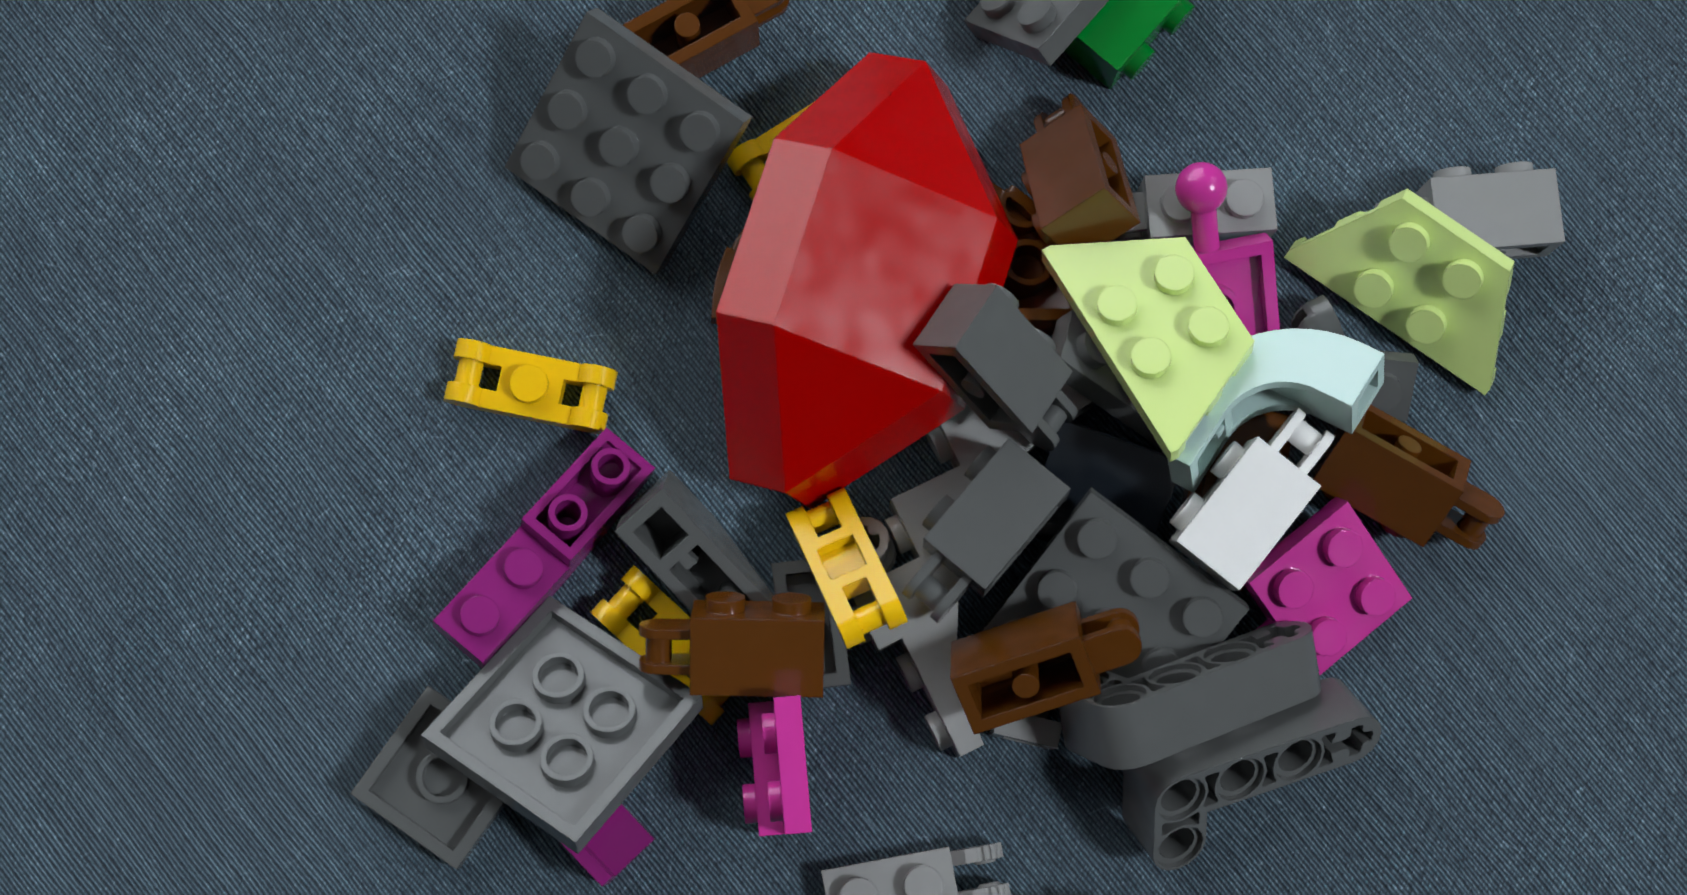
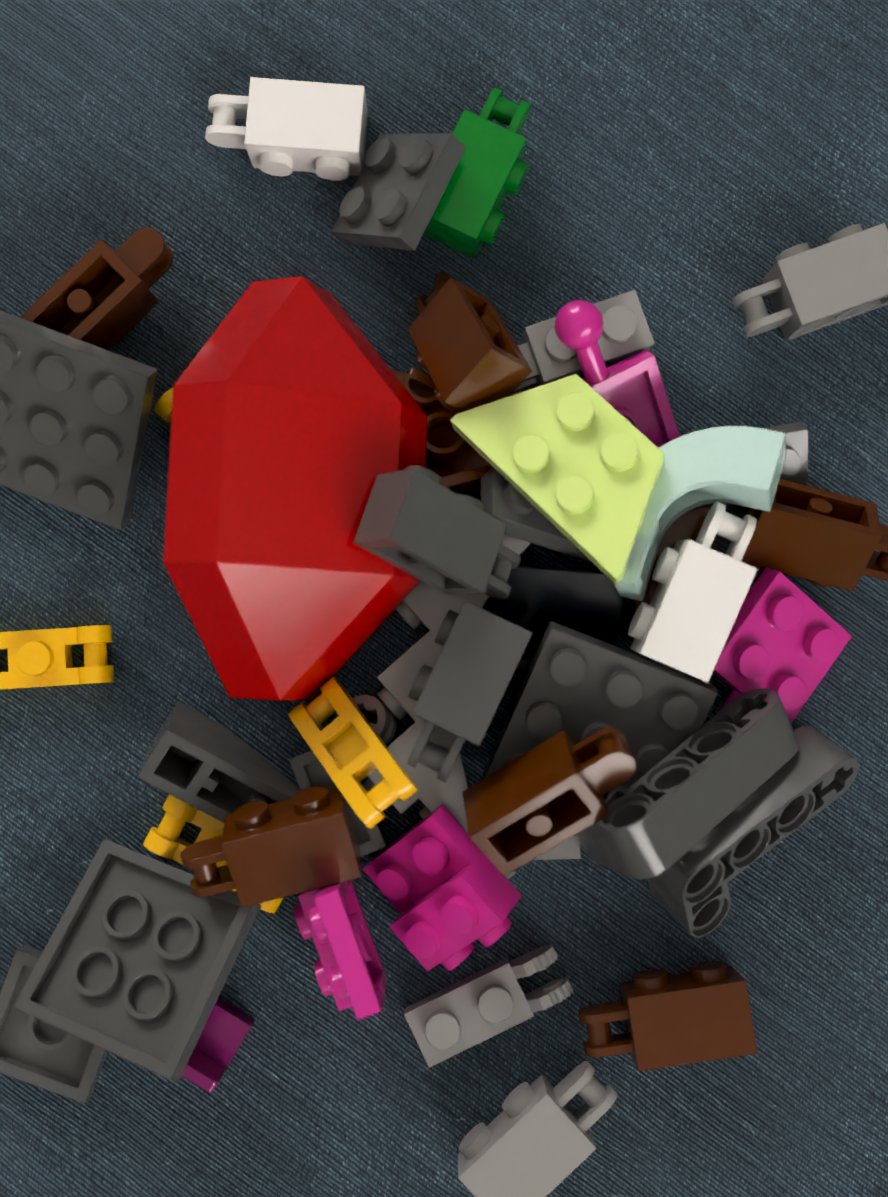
camera: 10 degrees left, 5 degrees up
(544, 548) = (87, 801): magenta slope -> none
(899, 742) = (442, 891): none -> dark pink plate
(1317, 315) = (706, 413): dark grey hinge -> none
(1418, 280) = (788, 354): yellowish green wing -> none

